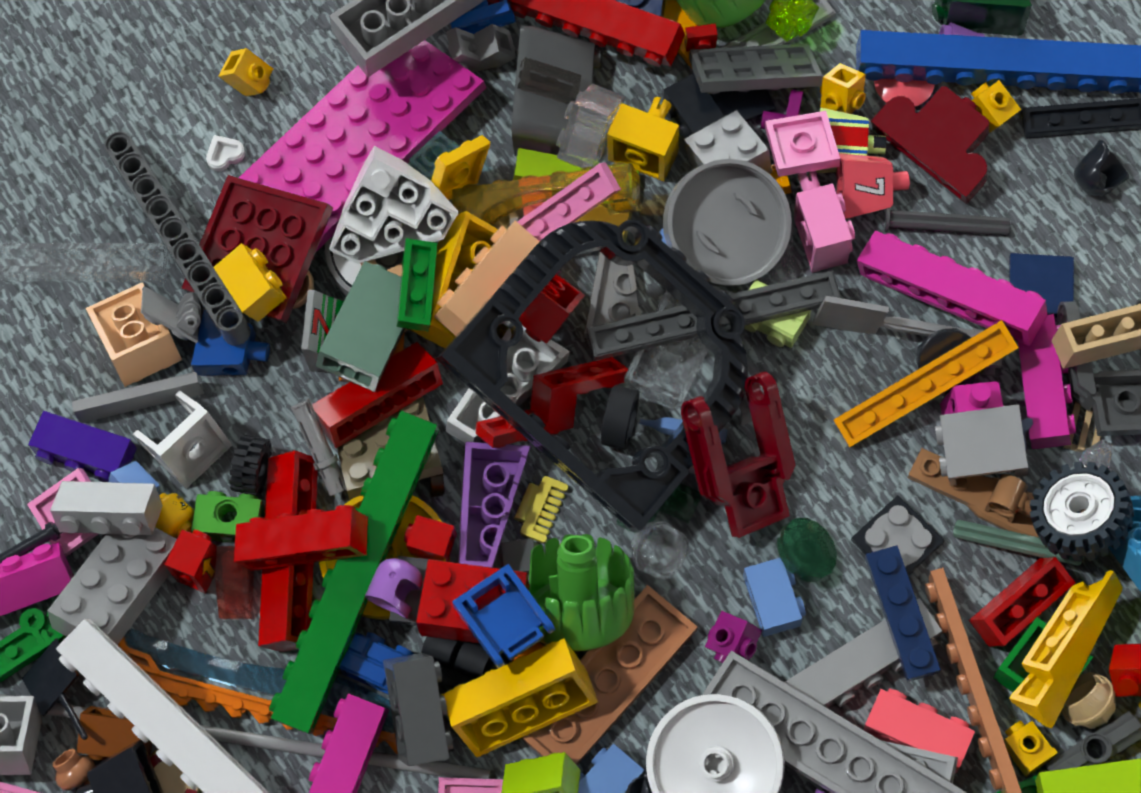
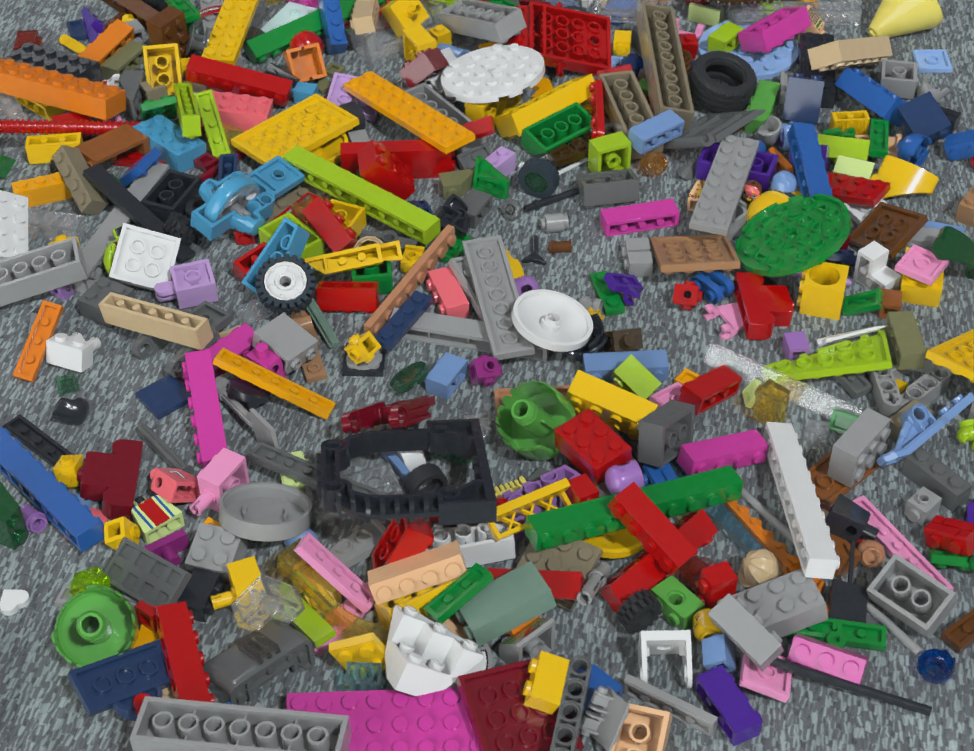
camera: 140 degrees left, 25 degrees down
(173, 633) = (758, 568): none -> tan piece
(459, 458) = (527, 501): none -> yellow fence
(508, 622) = (587, 412): blue container -> none
(802, 143) = (180, 513): bright pink plate -> none
(893, 521) = (362, 347): none -> yellow brick

